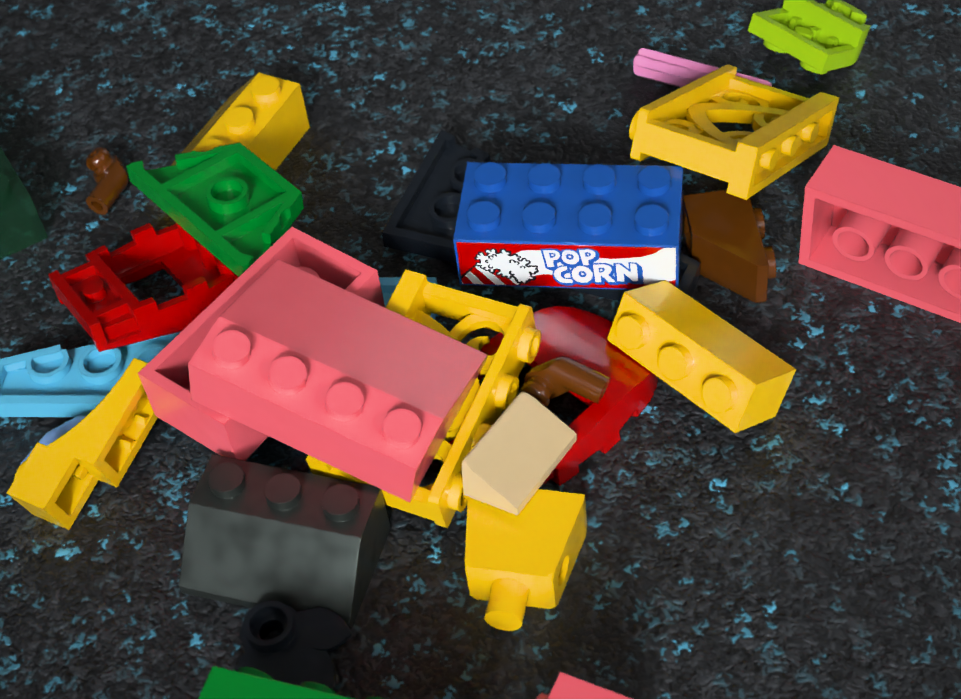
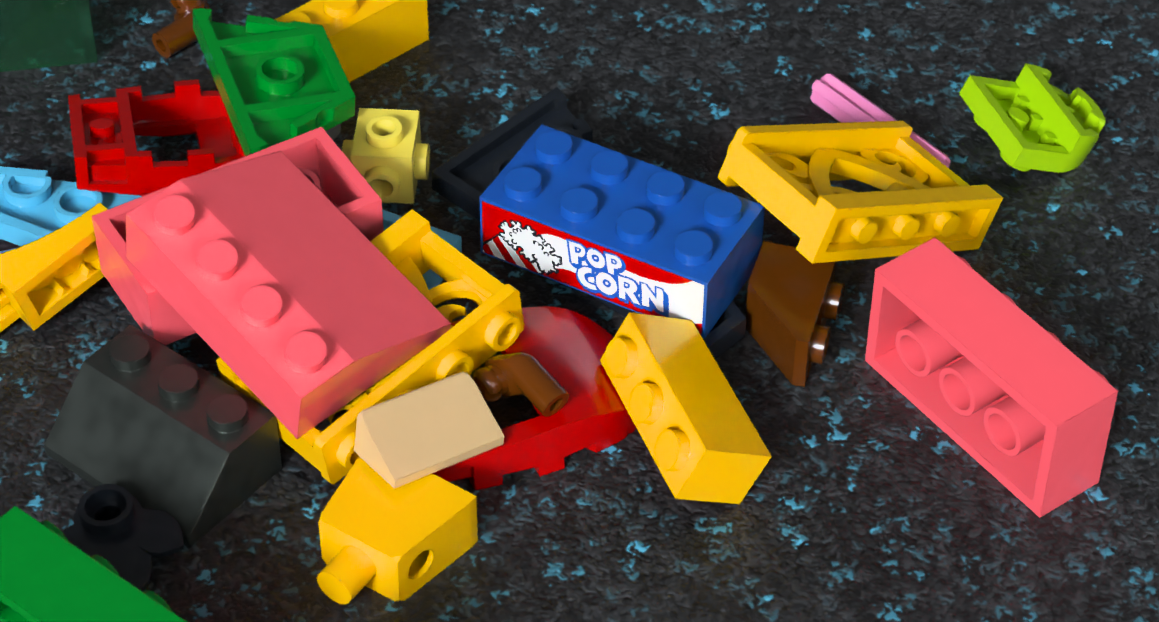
camera: 15 degrees right, 5 degrees down
(340, 223) = (389, 152): none -> light yellow brick

